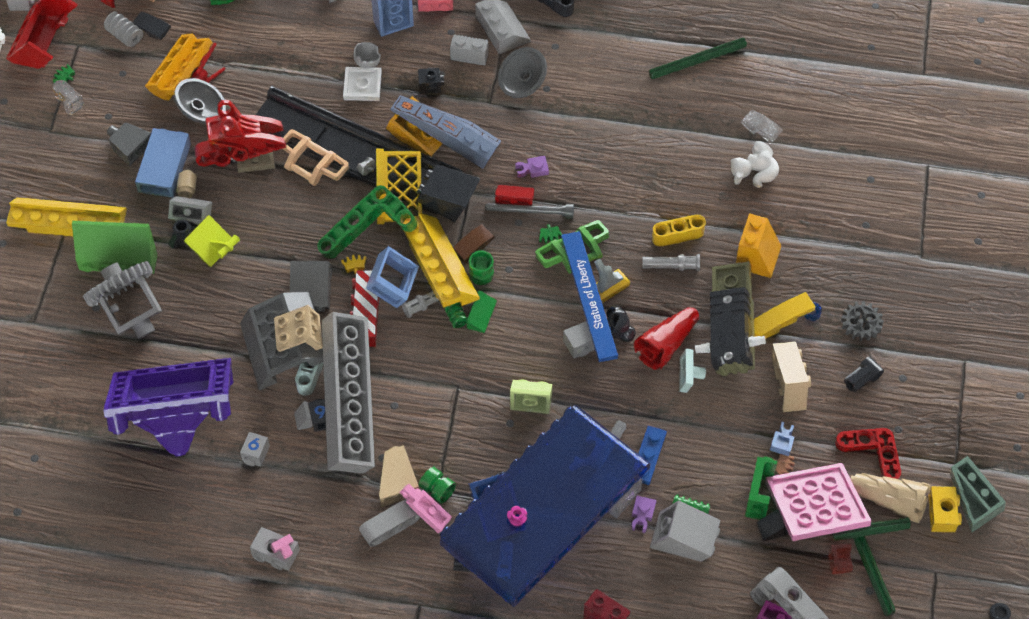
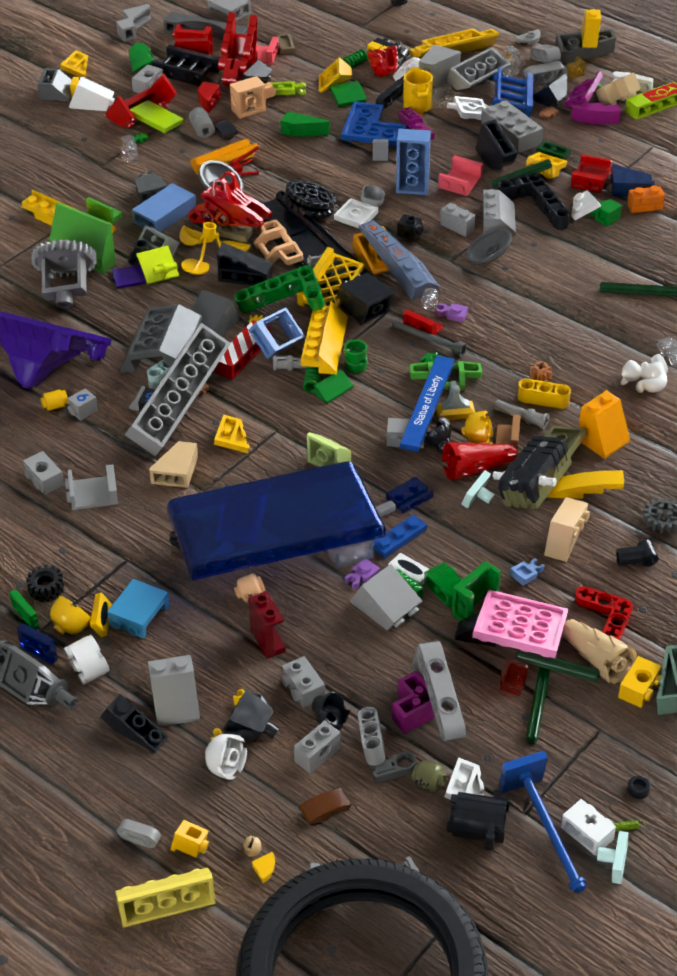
camera: 30 degrees right, 15 degrees down
(67, 40) = (156, 116): none -> lime tile
(99, 193) = (103, 211): none -> bright green panel
(184, 265) = (128, 276): none -> dark purple piece
(186, 183) = (171, 226): tan brick -> none
(217, 186) = (192, 237): none -> yellow plant
(222, 457) = (54, 400): none -> yellow brick
(283, 546) = (45, 465): bright pink tile -> none
(297, 328) = (175, 327): tan bracket -> none
(300, 206) = (241, 267): none -> black wedge
(309, 88) = (309, 199): none -> black piece
(335, 543) = (92, 491): none -> light grey panel
(388, 523) = (145, 492): light grey beam -> none
(422, 415) = (231, 435): none -> yellow wing
(426, 507) = (178, 483): bright pink hinge -> none
(439, 487) = (202, 479): green wheel -> none
(473, 241) = (371, 338): reddish brown slope -> none
(504, 162) = (430, 298): none -> clear wheel
(517, 521) = (239, 511): dark pink plate -> none
(557, 581) = (249, 586): none -> light nougat head
(628, 404) = (409, 494): none -> clear blue plate
(649, 304) = (478, 428): none -> yellow cylinder
(660, 206) = (540, 371): none -> nougat gear
(675, 293) = (509, 433): none -> medium nougat panel
(682, 486) = (409, 567): none -> white tile
(725, 488) = (441, 582): none -> green brick
(783, 464) = (515, 589): nougat piece -> none
(815, 316) = (624, 498): clear blue bush -> none

